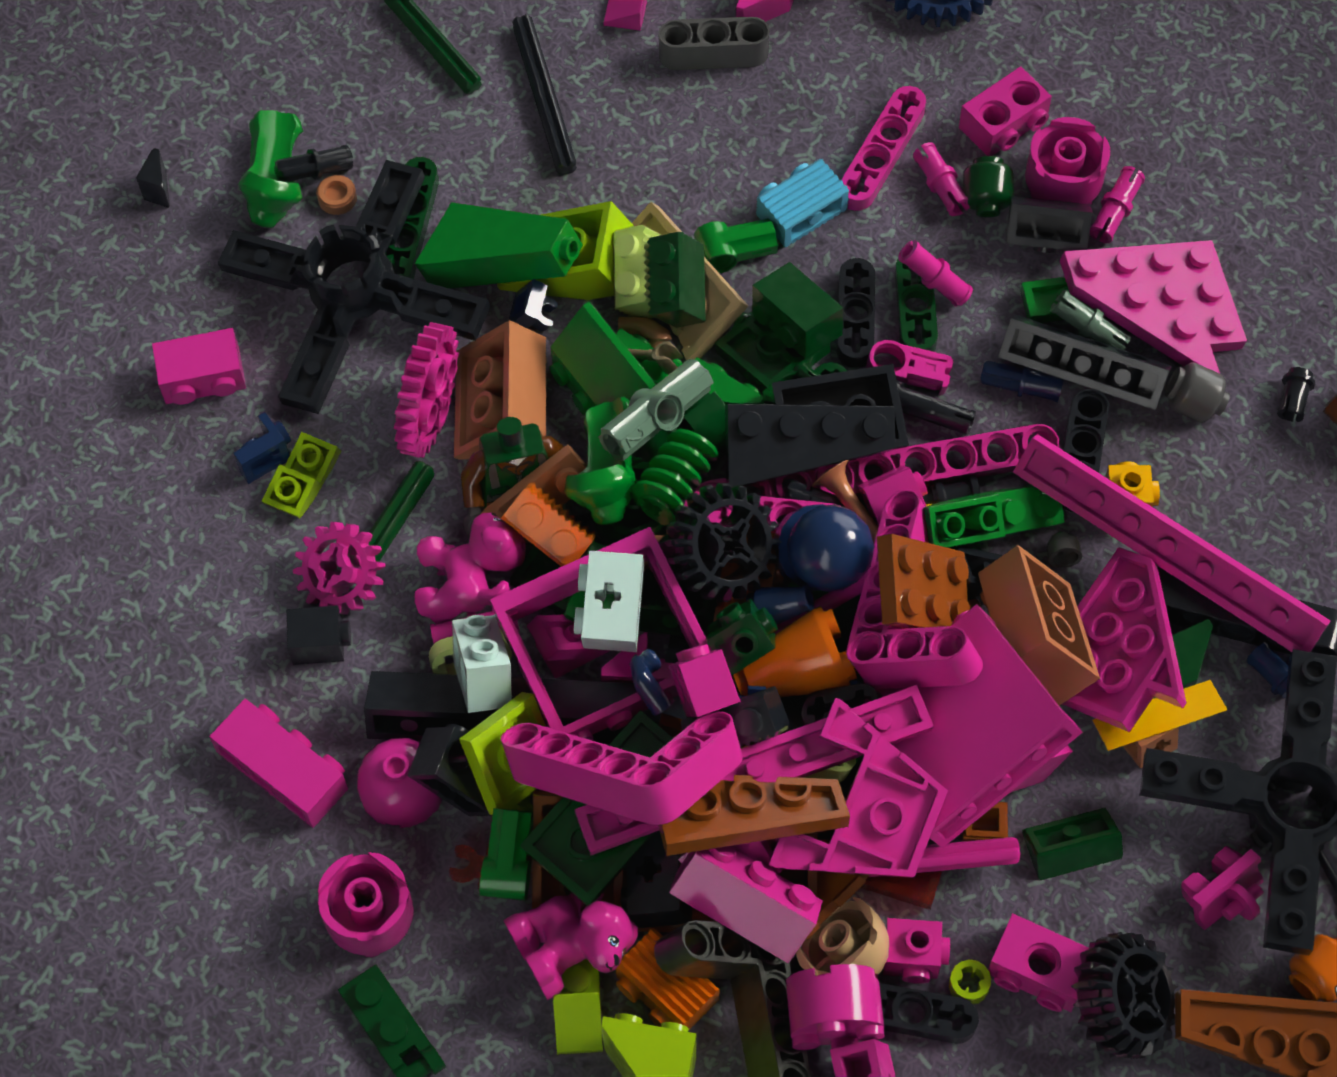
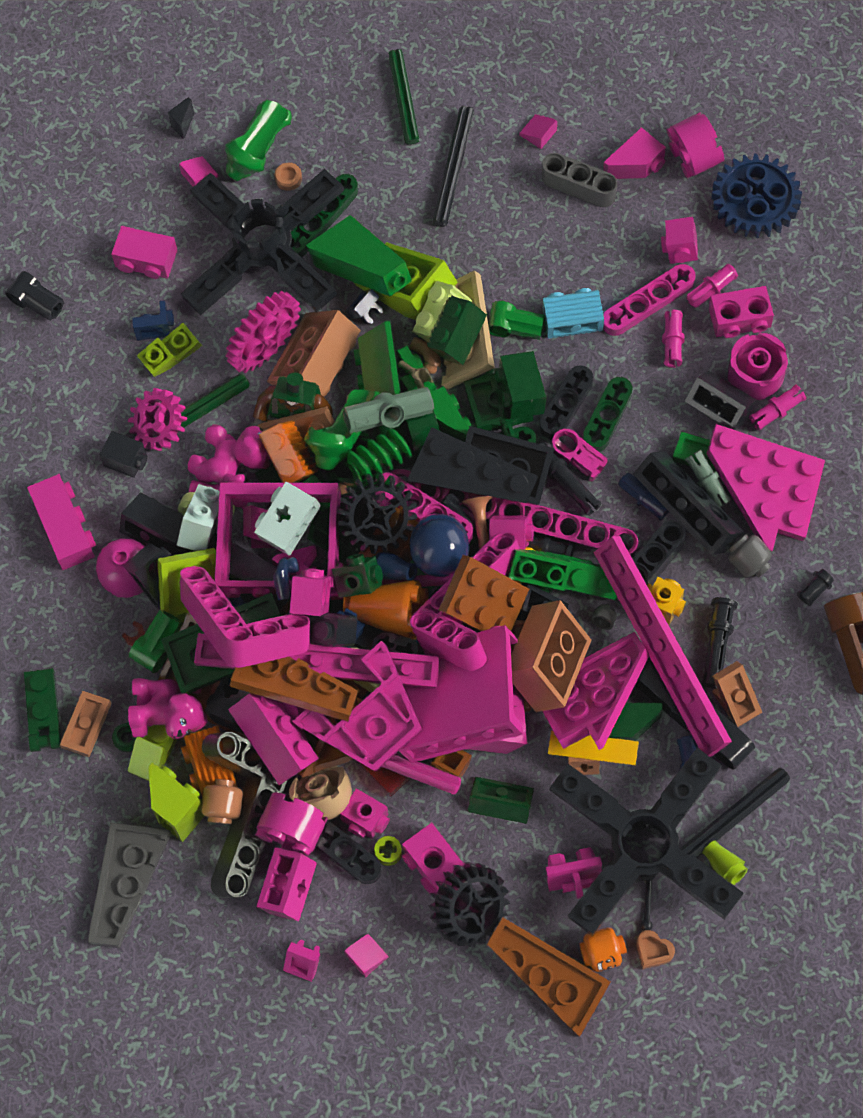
camera: 30 degrees right, 5 degrees up
(65, 485) = (29, 292): none -> black piece
(209, 238) = (196, 169): none -> dark pink slope
(313, 164) = (282, 150): black axle -> none
(366, 879) = (72, 643): dark pink brick -> none
(464, 1017) = (85, 724): none -> nougat plate
(523, 995) = (118, 735): none -> dark green plate
(721, 1025) = (222, 802): none -> nougat head
(883, 59) = (680, 240): none -> dark pink brick
(935, 273) = (626, 400): dark pink pin -> none
(950, 98) = (712, 285): none -> dark pink axle
(988, 185) = (699, 356): dark green head -> none
(1215, 498) = (719, 630): none -> black pin
(1286, 562) = (736, 694): none -> nougat slope

